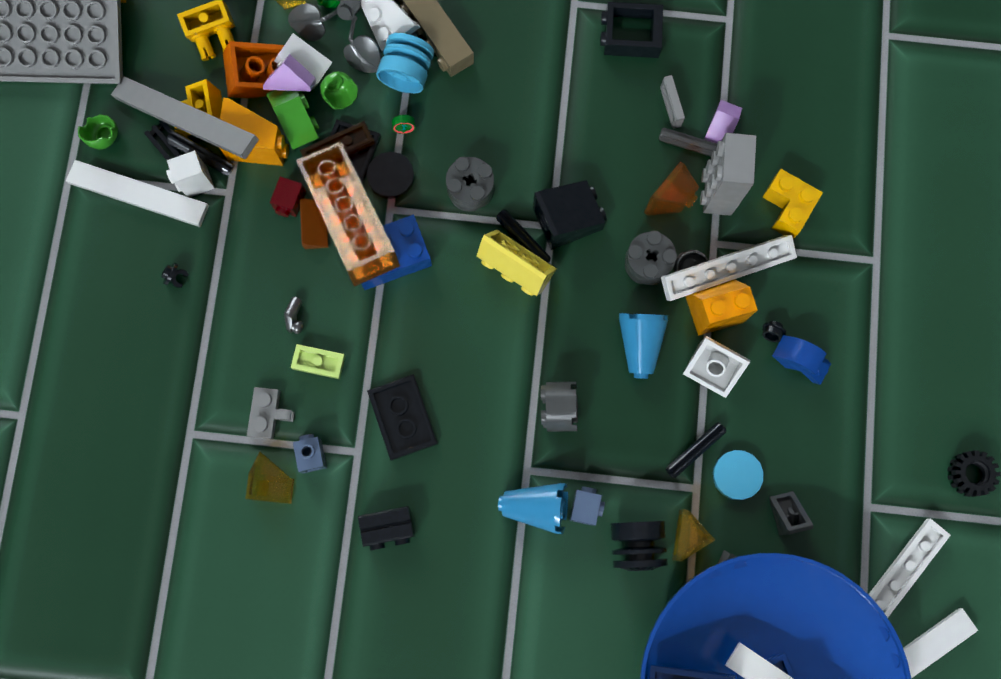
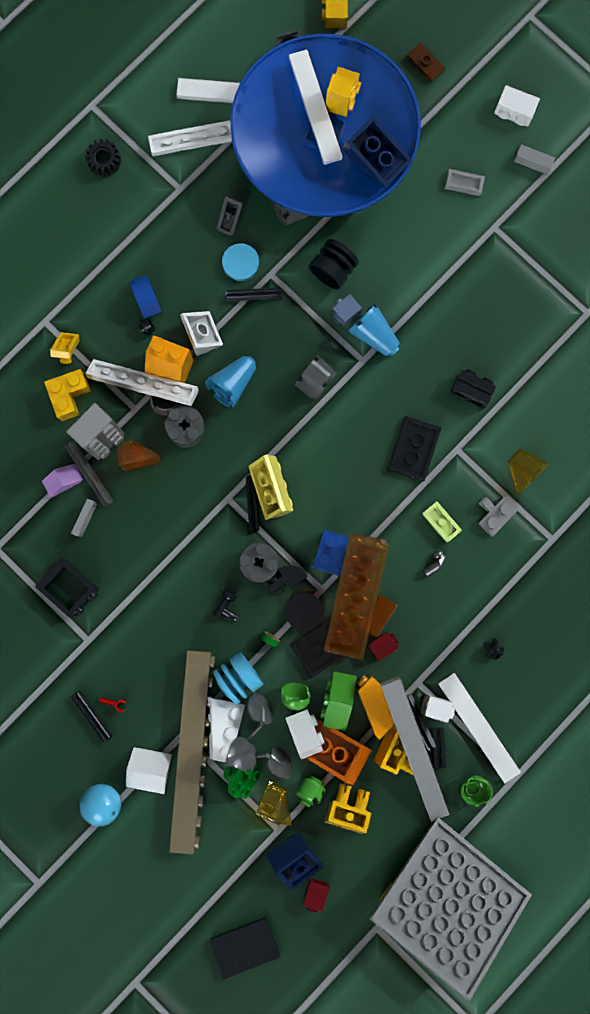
camera: 140 degrees left, 5 degrees up
(259, 20) = (310, 791): none -> bright green head
(290, 77) = (324, 724): lavender slope -> none
(309, 454) = (488, 467): sand blue brick -> none
(353, 140) = (316, 655): dark brown tile -> none
(432, 195) = (290, 575): none -> black brick
(475, 133) = (222, 608): none -> black piece
(568, 213) = (212, 493): black slope -> none
(689, 536) = (300, 247): clear yellow slope -> none
(835, 245) = (64, 347): none -> yellow tile

